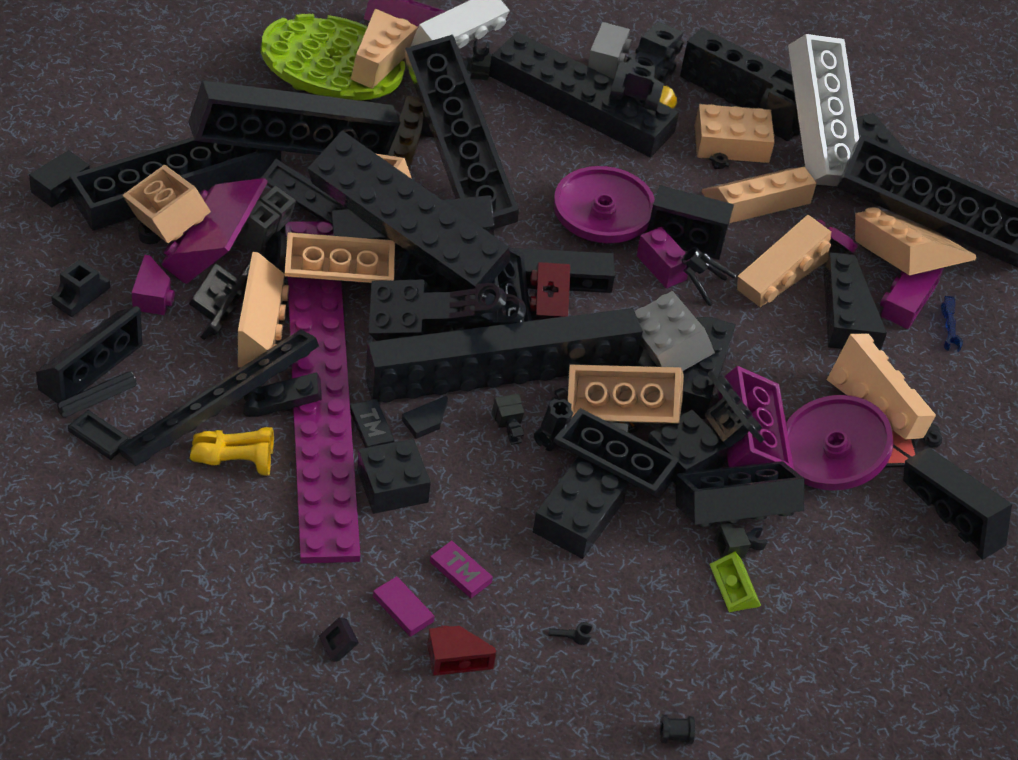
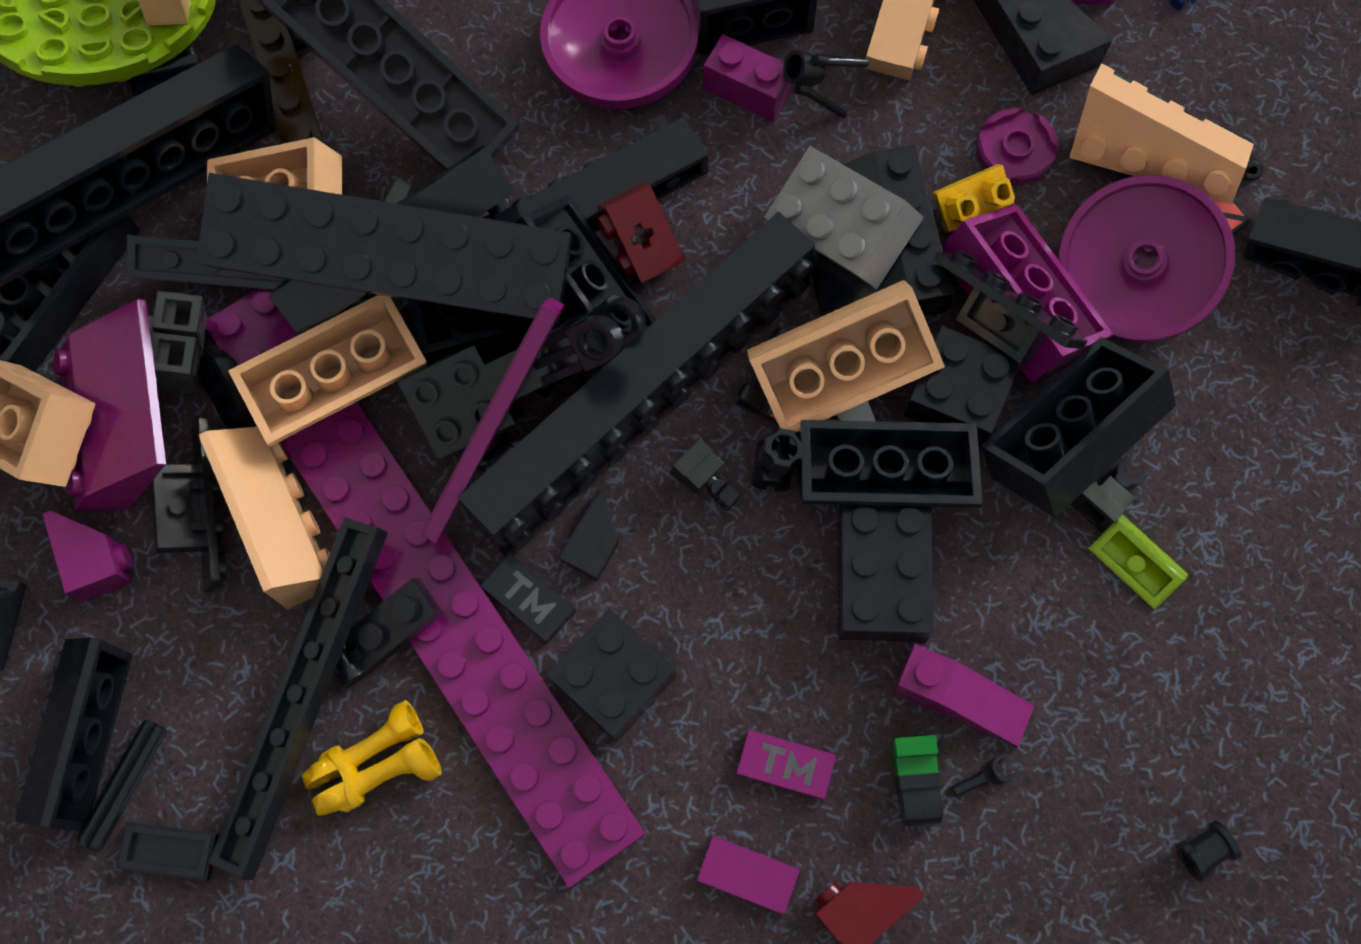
camera: 20 degrees left, 25 degrees up
(412, 314) = (493, 418): none -> magenta tile
(531, 607) = (917, 779): none -> leg
(583, 584) = (962, 695): none -> magenta slope
(759, 364) = (974, 196): none -> yellow hips
(798, 370) = (1020, 160): none -> magenta tile

